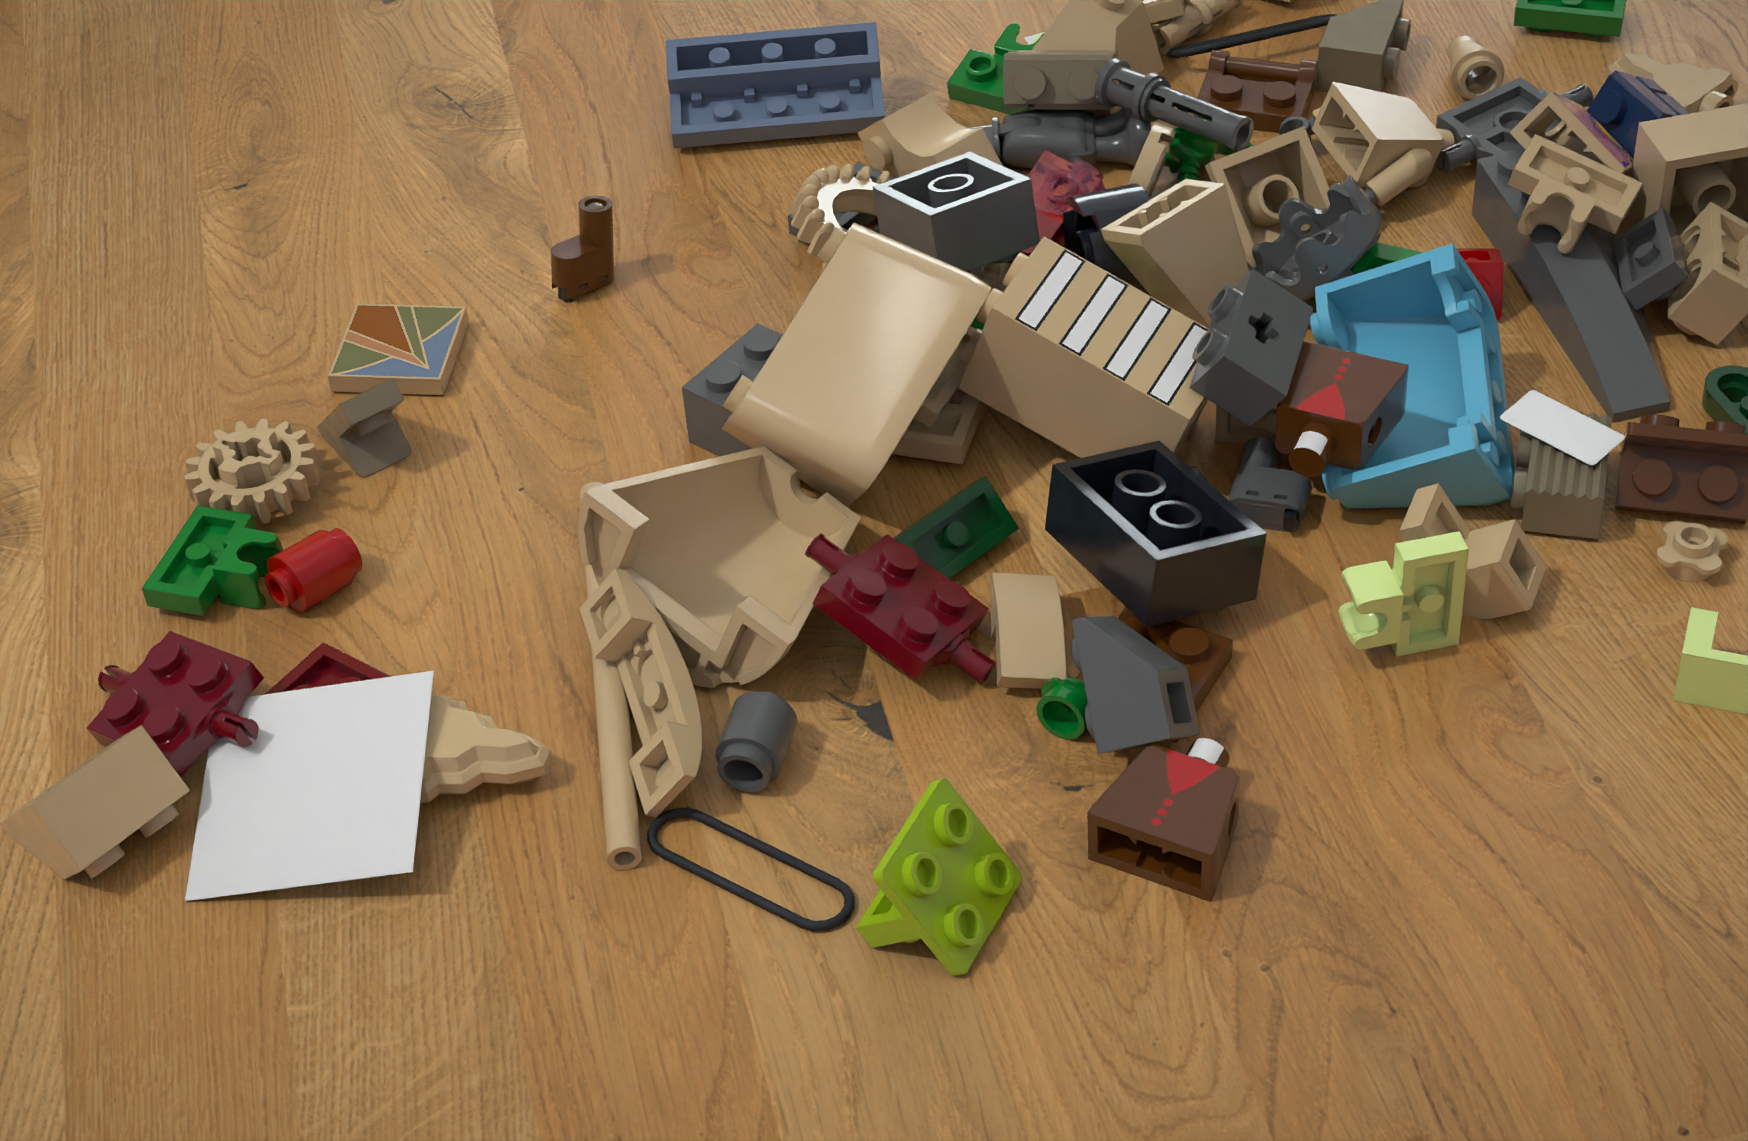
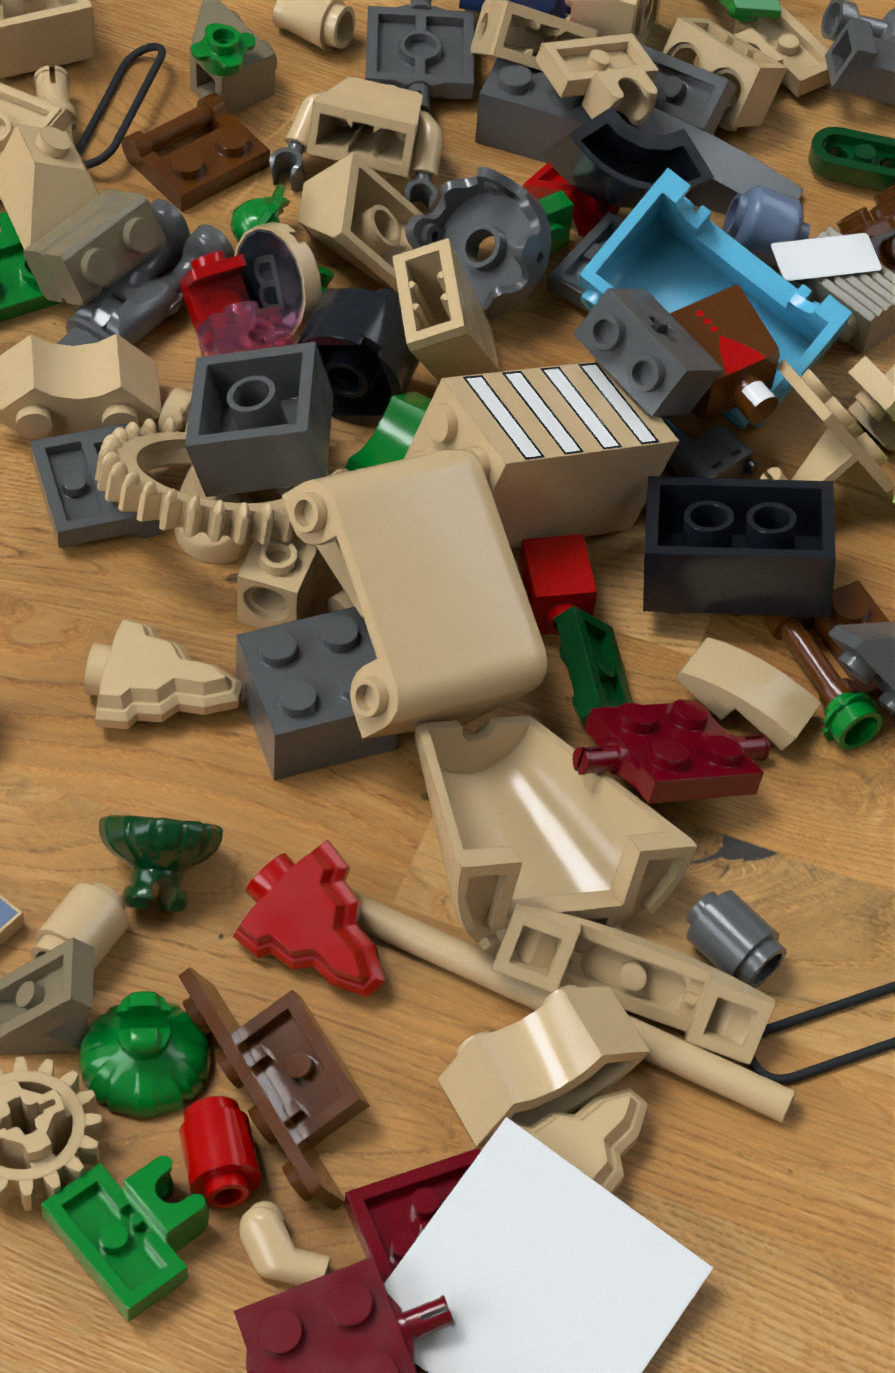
camera: 65 degrees left, 10 degrees up
(262, 627) = (273, 1250): none -> tan arm
(375, 496) = (144, 1056): none -> green hair
(395, 563) = (290, 1075): none -> reddish brown bracket
(444, 410) = (88, 914): none -> tan brick
(530, 683) = (544, 1062): none -> tan brick
(538, 402) = (158, 853): none -> dark green hair
(548, 504) = (311, 920): none -> red rock
(698, 319) = (153, 679): none -> tan rock
(1019, 466) = (556, 578): none -> red brick
(1108, 150) = (213, 285): none -> red bracket
(1154, 99) = (318, 195): dark grey pin -> none
(1339, 25) = (223, 49): none -> green plate
(1351, 516) = (837, 447): none -> tan plate
(1510, 272) = (622, 162): none -> black brick
(1578, 381) = (765, 218): none -> sand blue head

